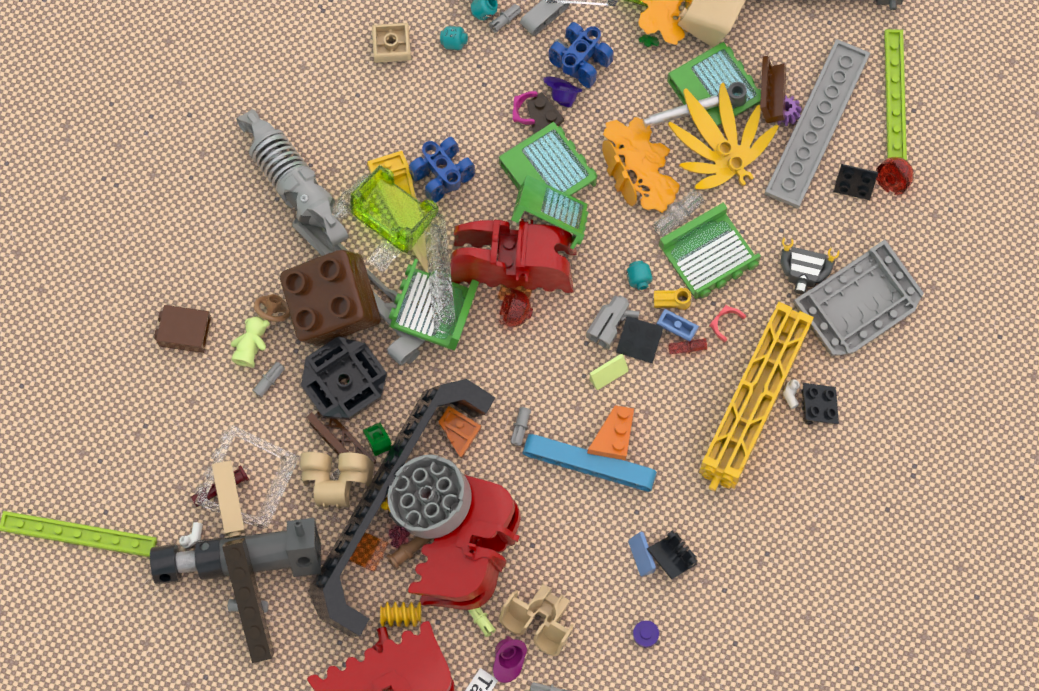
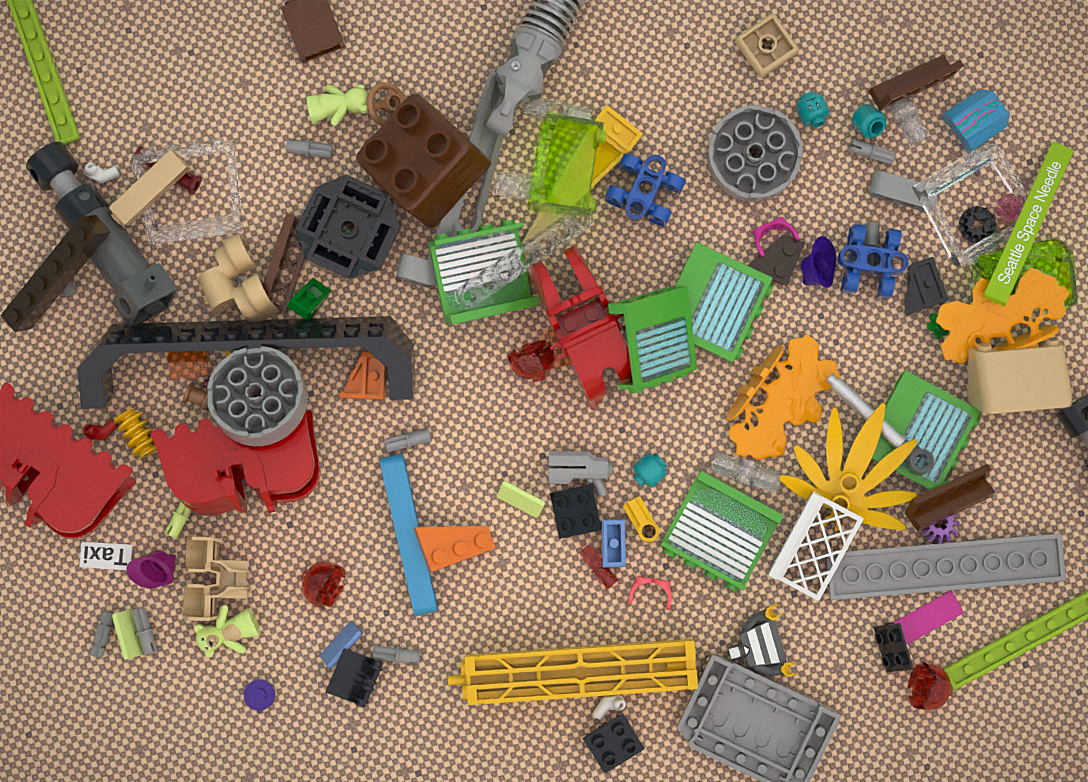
camera: 65 degrees right, 15 degrees up
(466, 105) = (750, 177): none -> light grey brick
(585, 631) = (227, 632): none -> yellowish green piece
(589, 541) = (321, 583): none -> clear red cylinder
(618, 34) = (924, 287): none -> black wing
(672, 518) = (396, 655): none -> light grey axle
(740, 199) = (798, 534): none -> white fence
(846, 148) = (930, 617): none -> dark pink sticker

